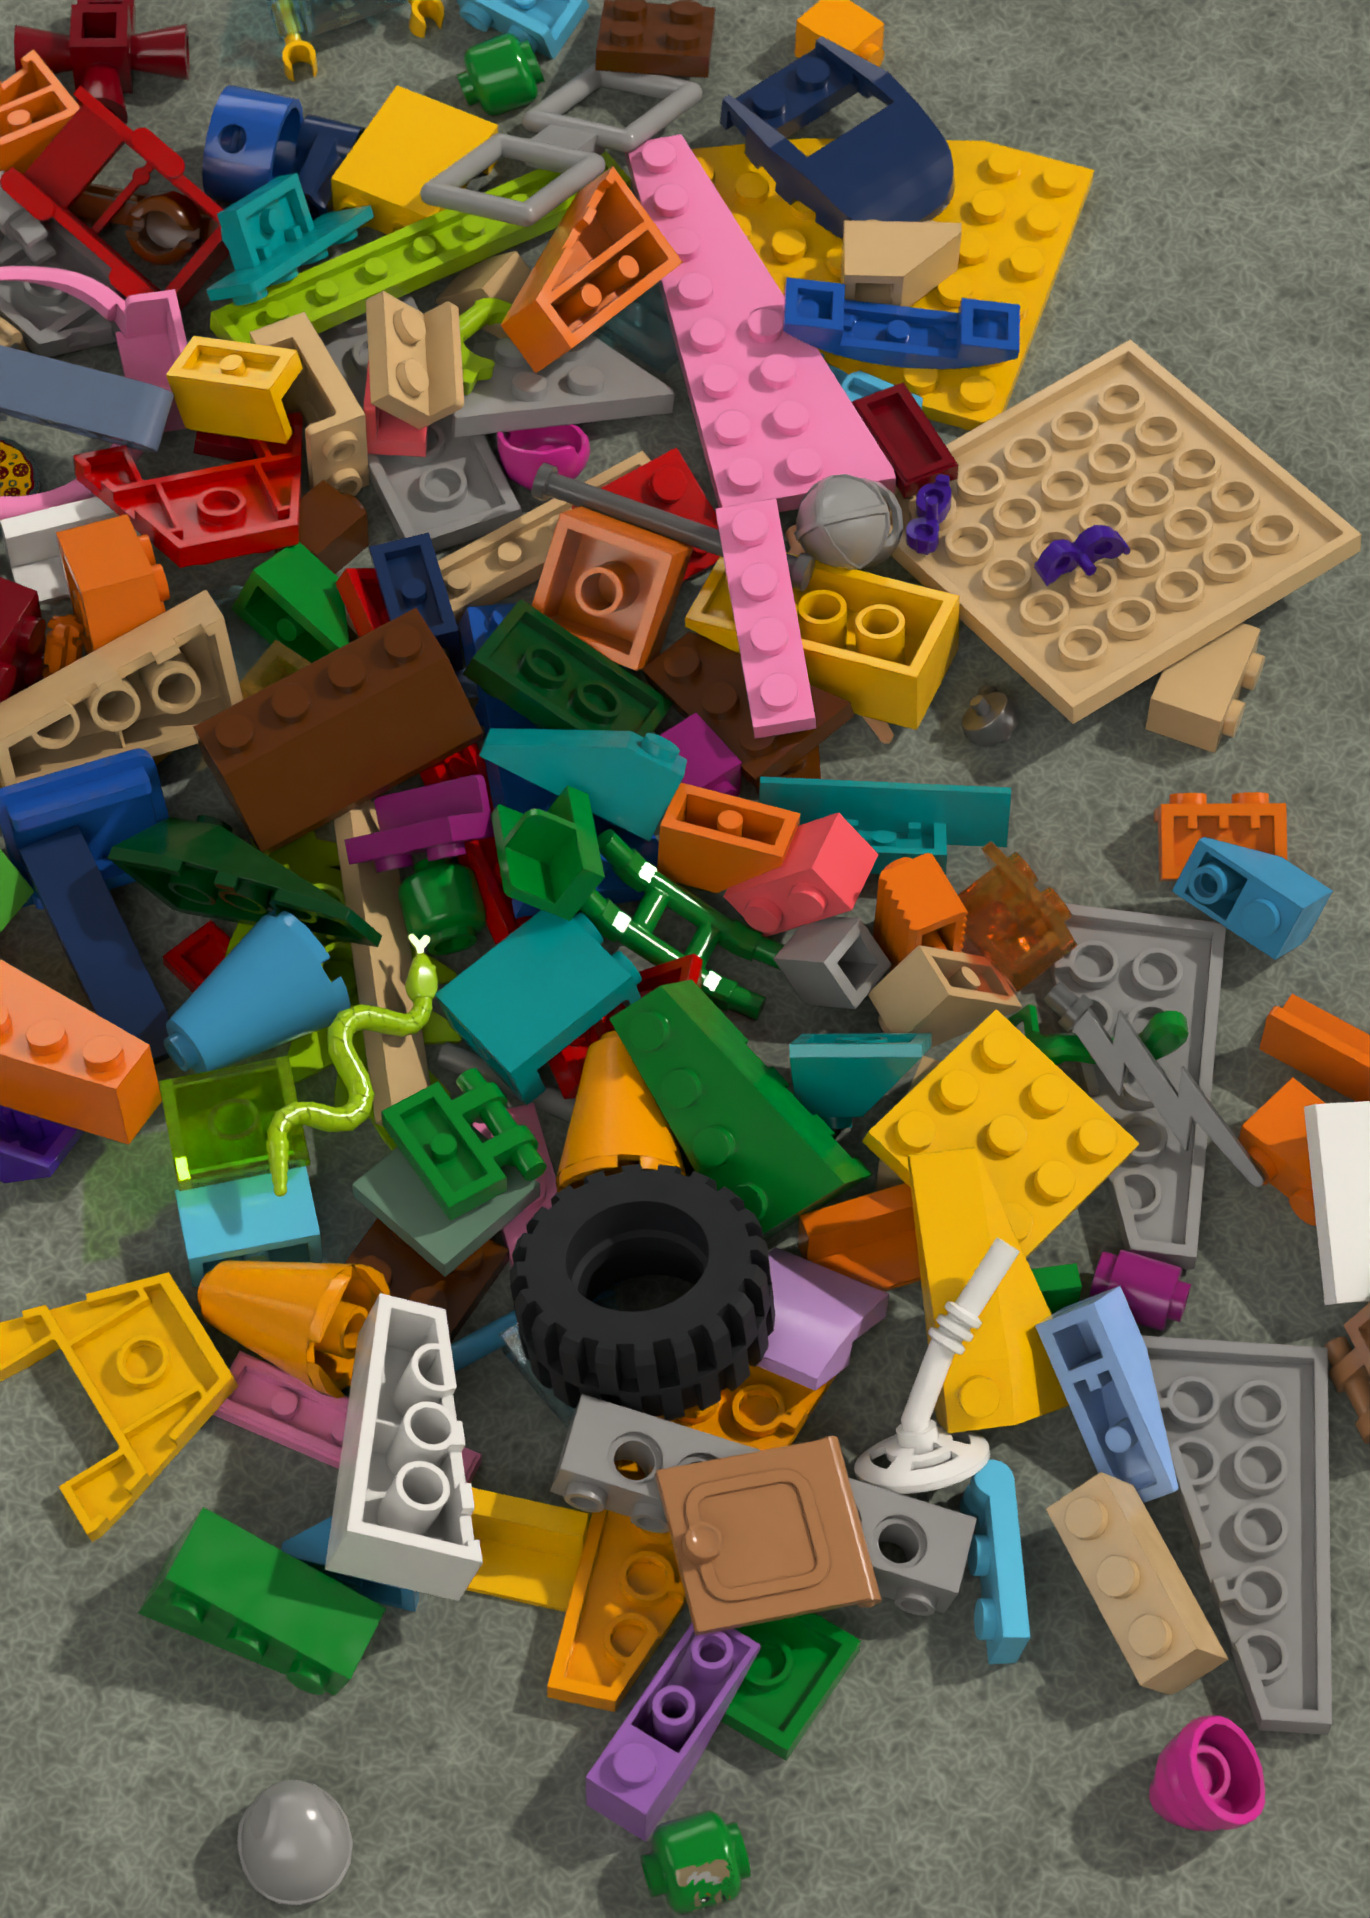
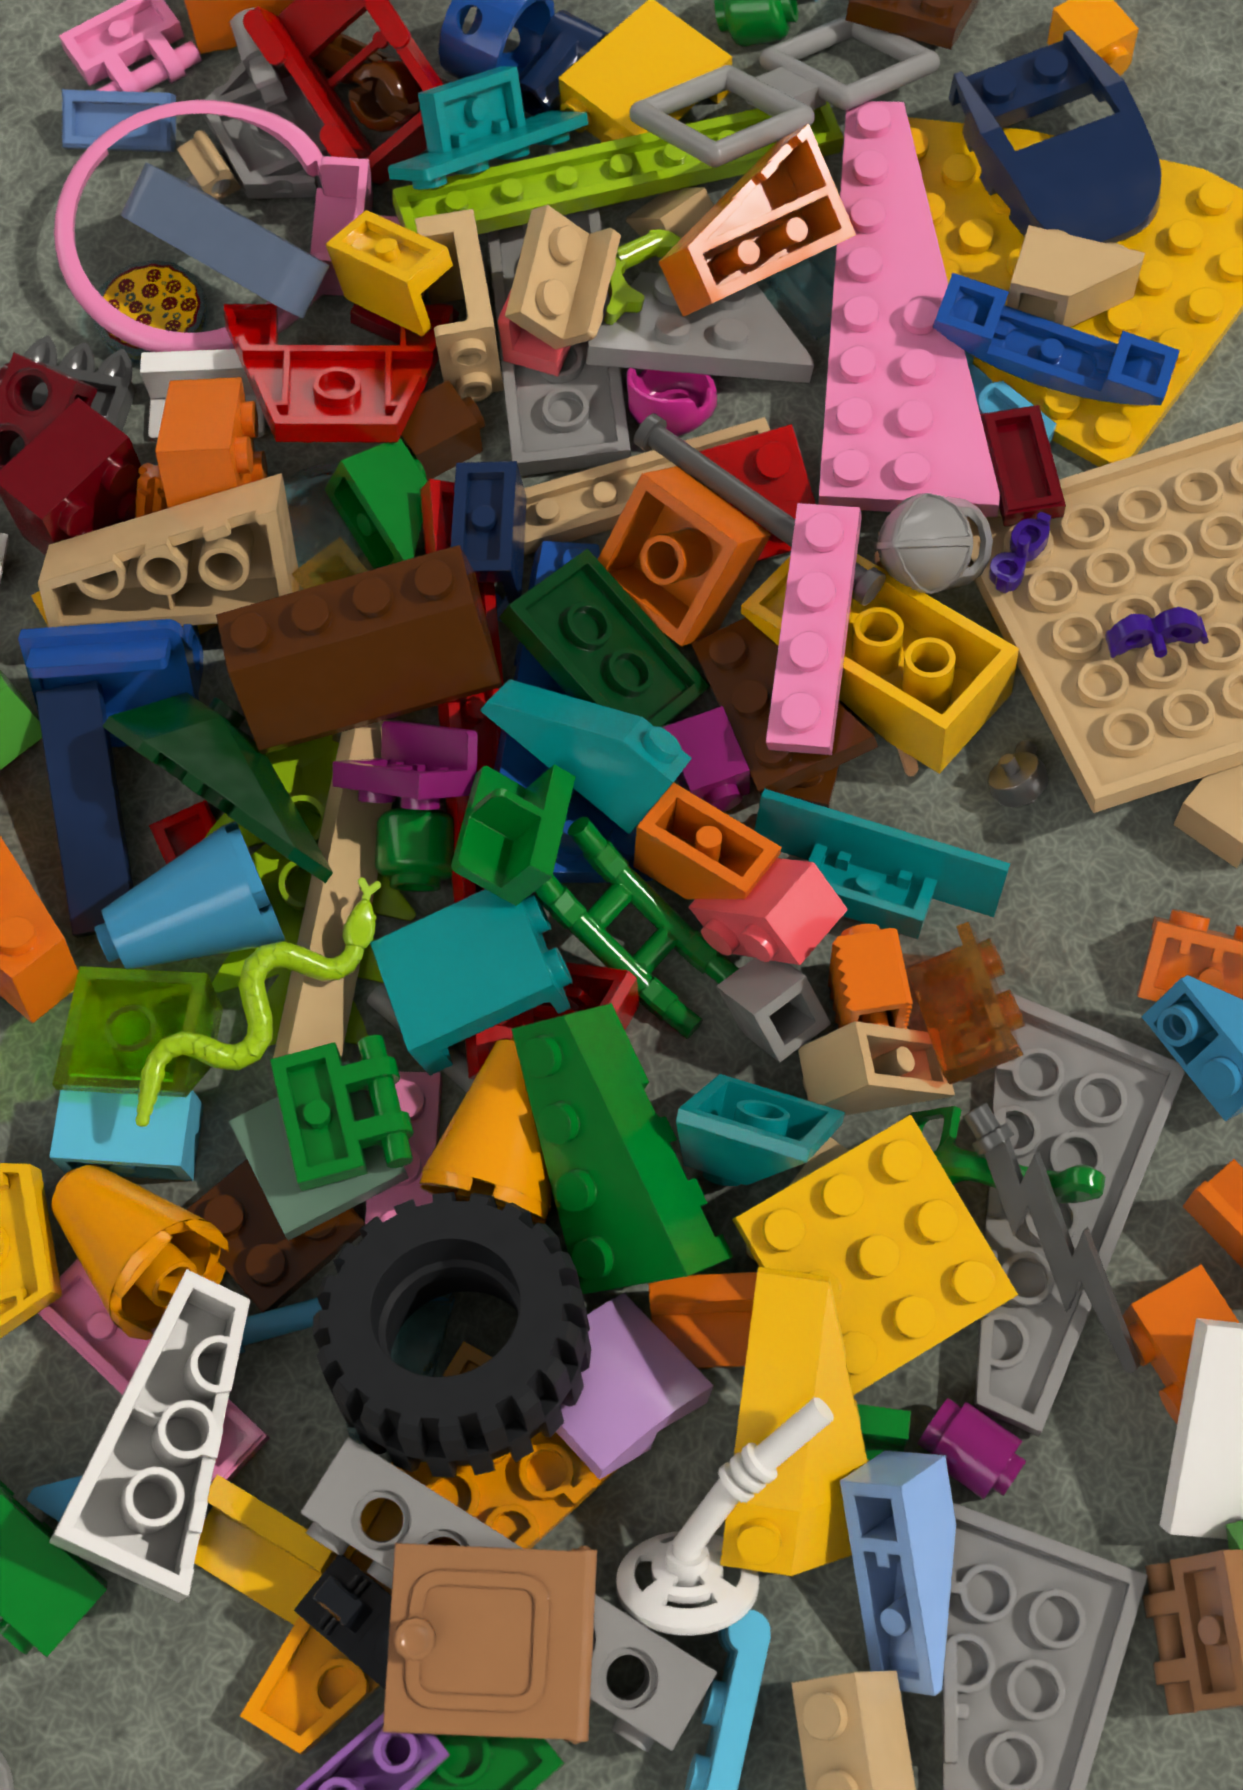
camera: 25 degrees right, 10 degrees up
(632, 1573) = (351, 1615): none -> black hinge

